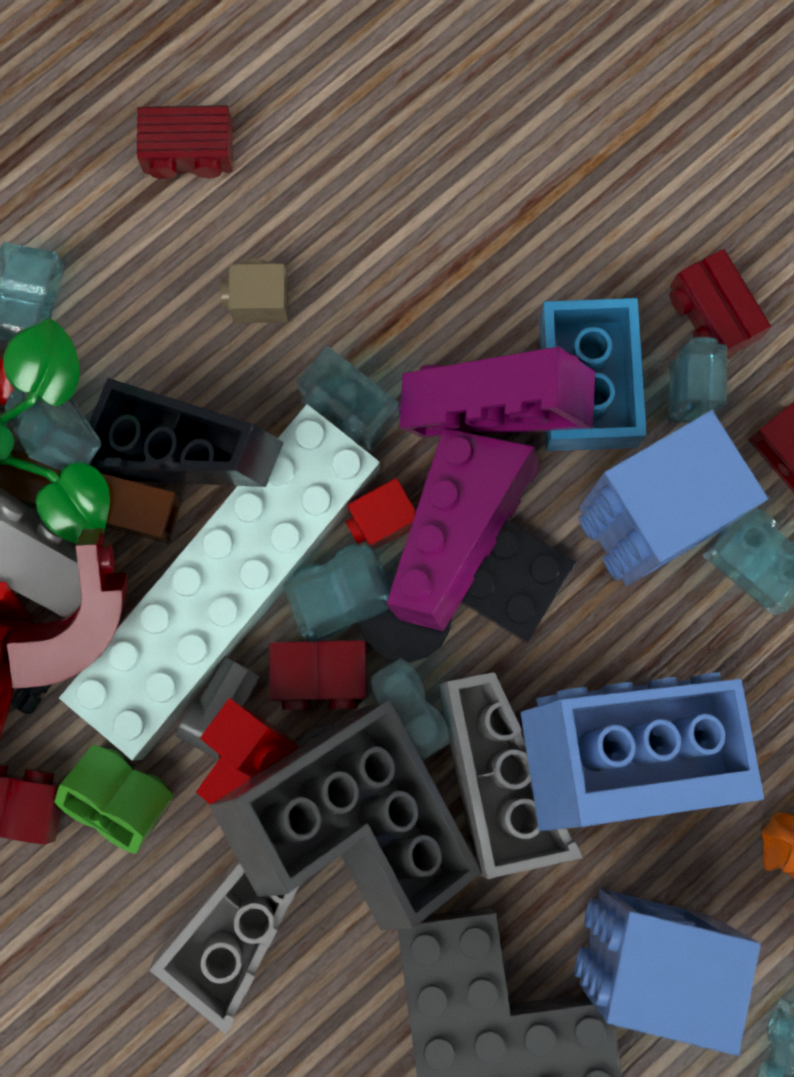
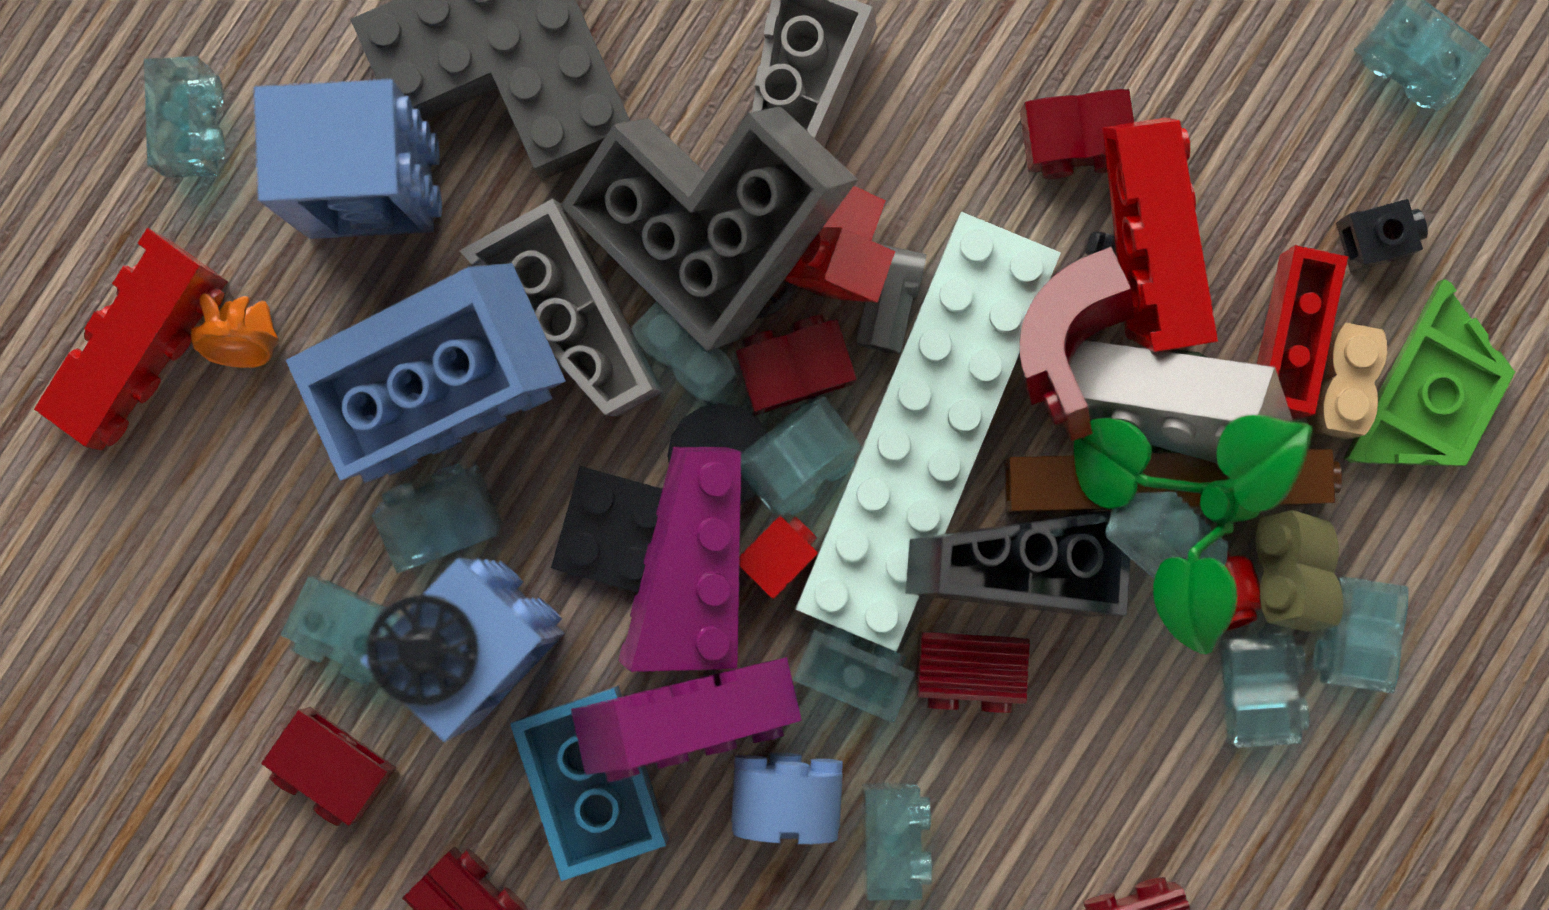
camera: 160 degrees right, 5 degrees up
(114, 798) = (969, 170): bright green brick -> none
(249, 377) = (973, 669): none -> dark red brick
(256, 292) = (997, 772): dark tan brick -> none
(357, 260) = (892, 841): none -> clear light blue brick
(433, 313) = (786, 798): none -> medium blue brick
(662, 631) = (436, 517): none -> clear light blue brick
(697, 380) = (468, 808): clear light blue brick -> none
(711, 491) = (422, 650): none -> black wheel

